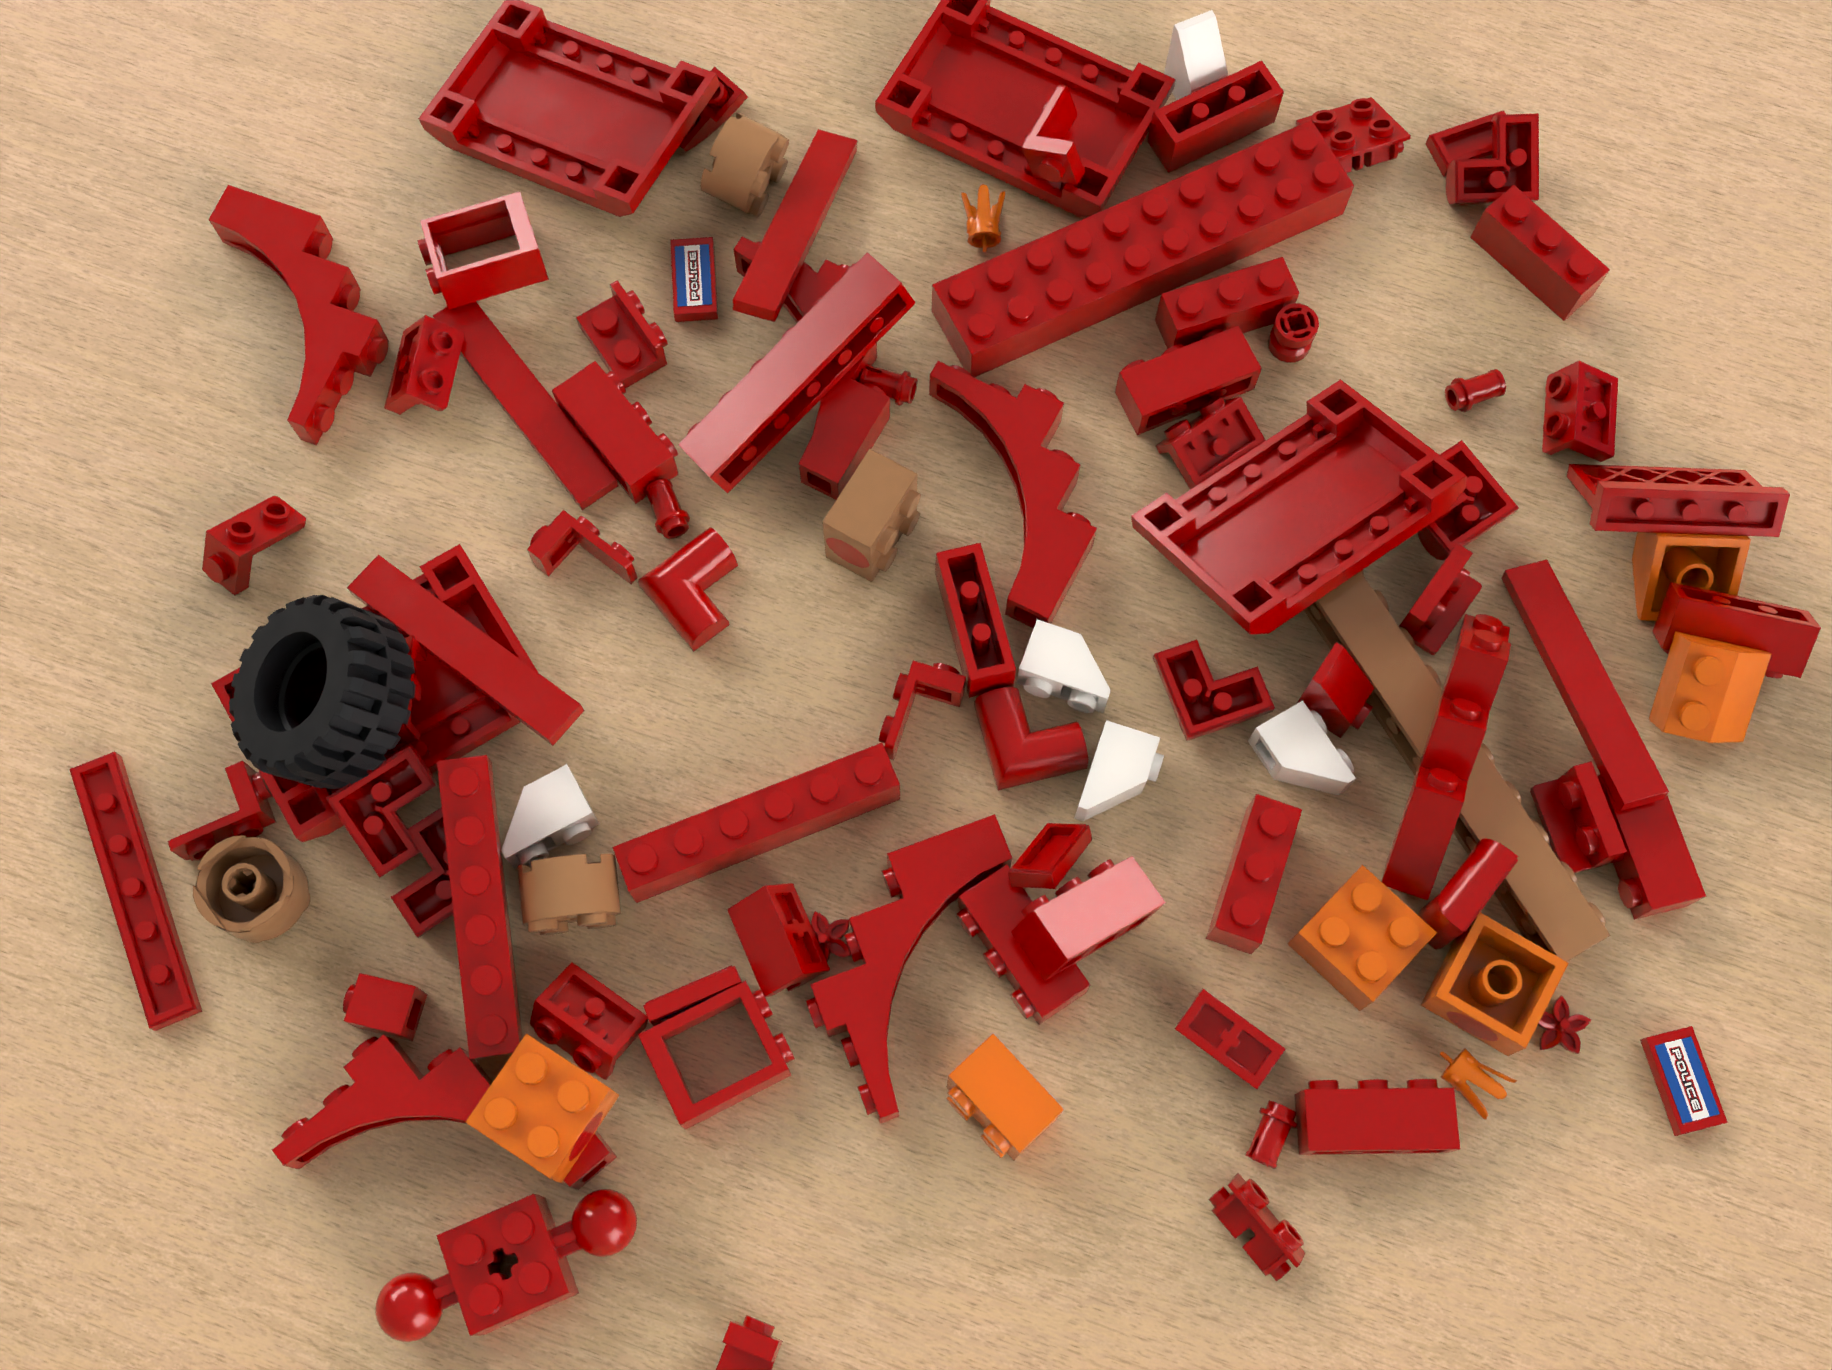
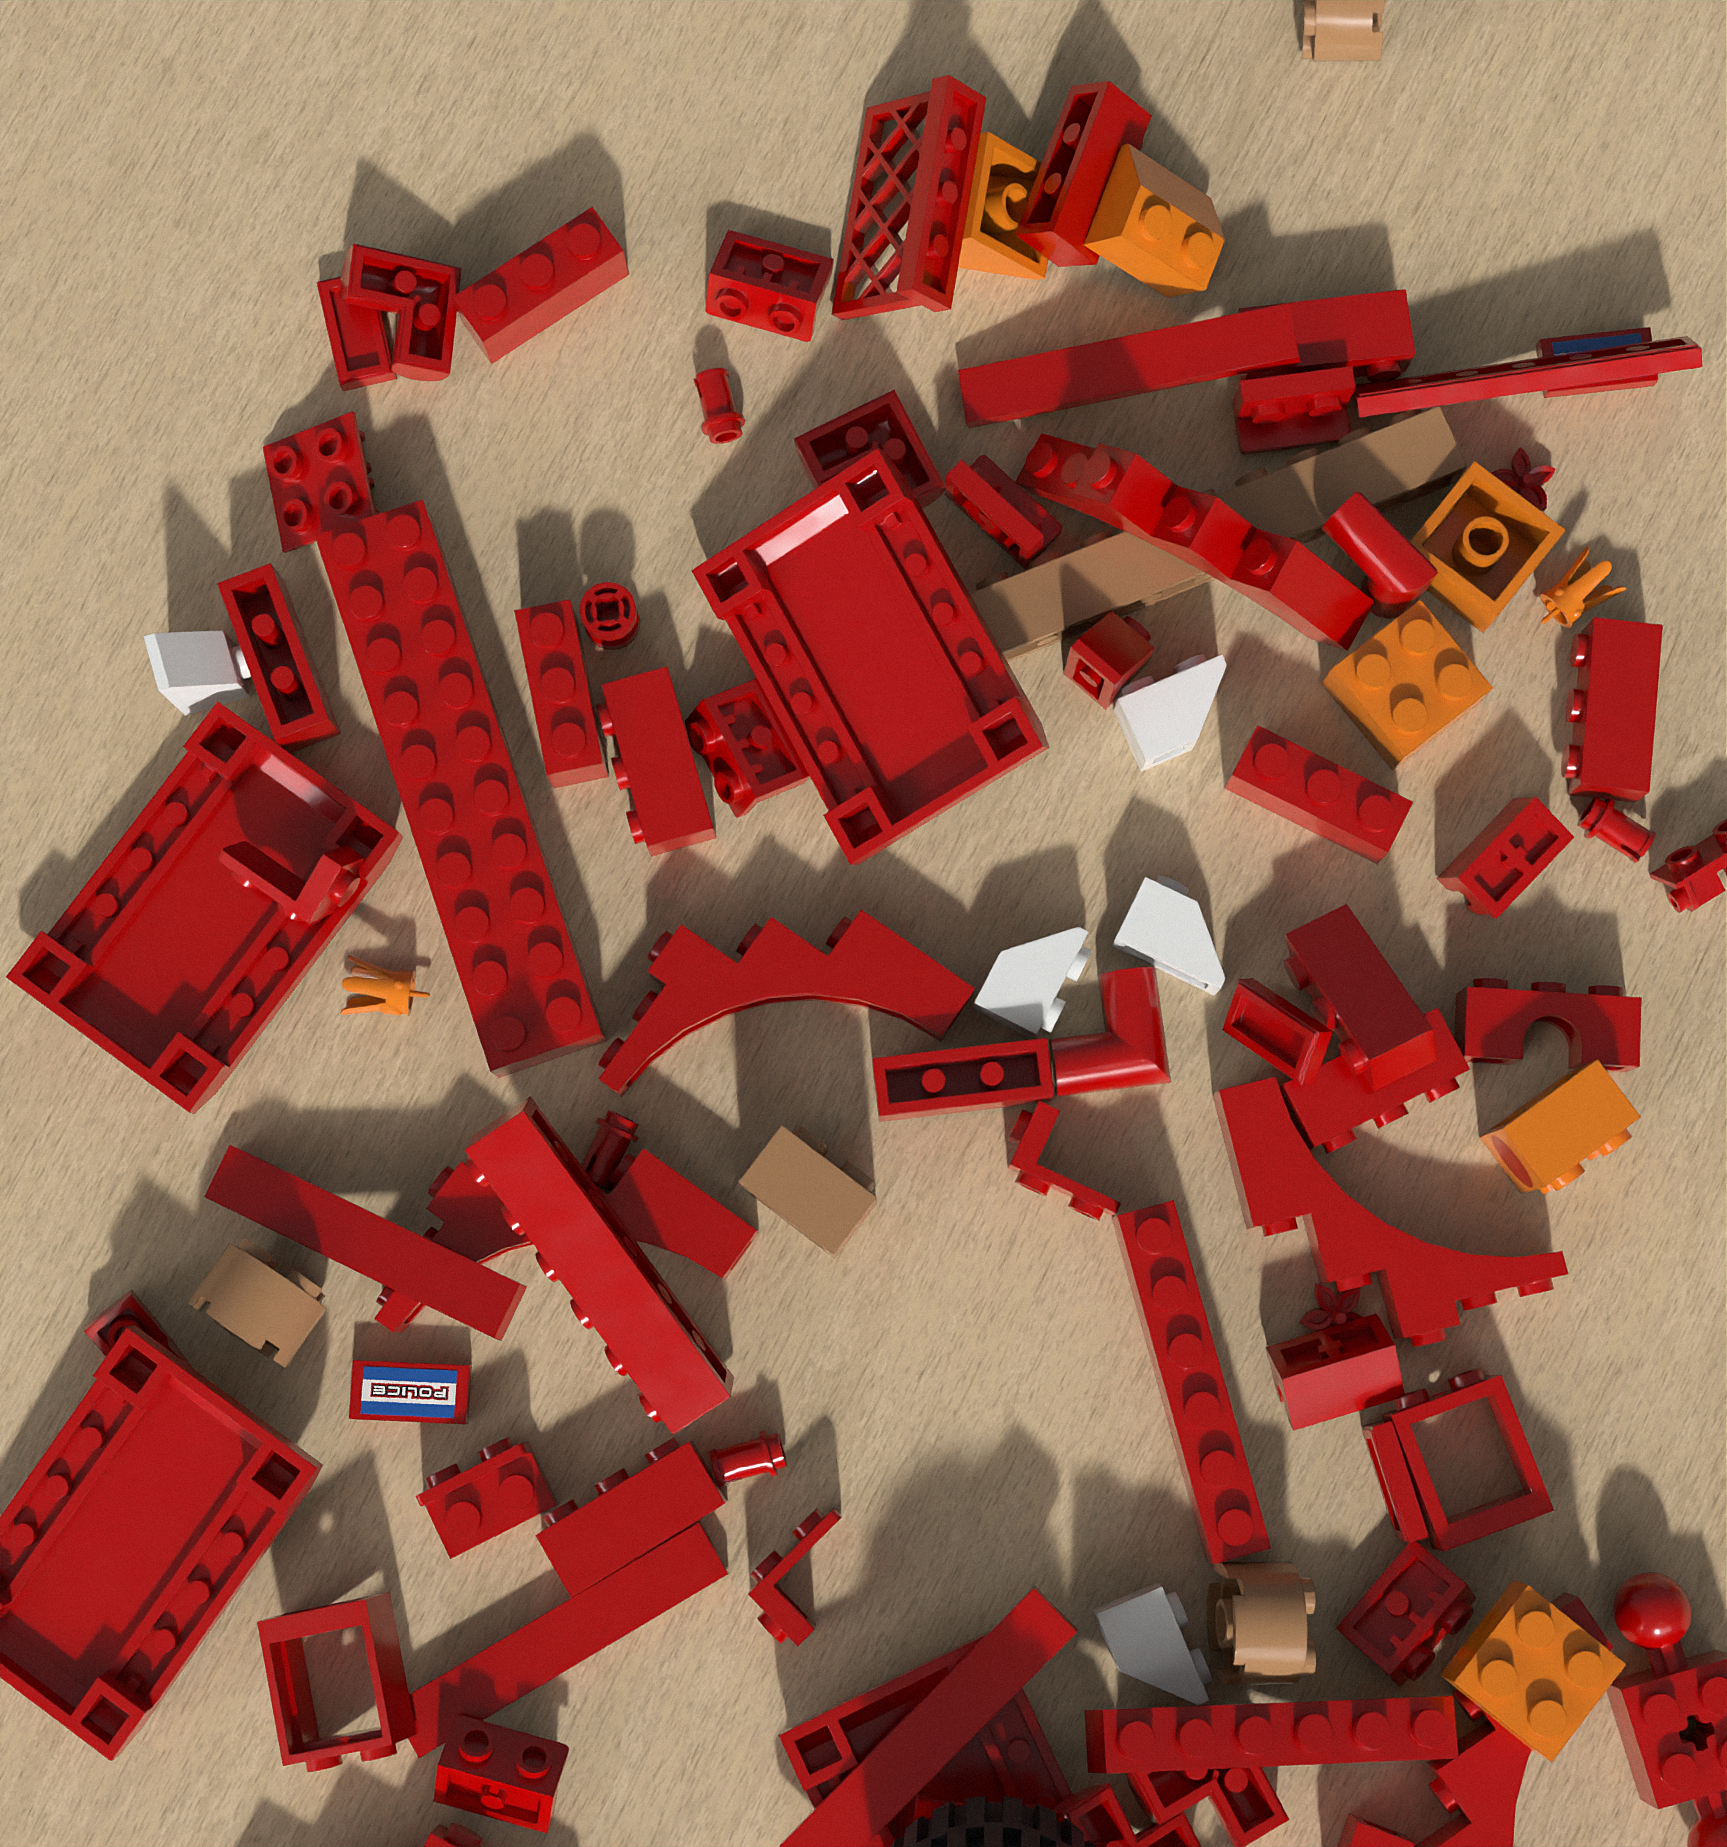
camera: 80 degrees left, 10 degrees up
(680, 584) = (855, 1453): red brick -> none
(1090, 1043) = (1595, 1024): none -> red arch
(1208, 704) = (1097, 819): red brick -> none
(1657, 1012) = (1527, 376): none -> red tile

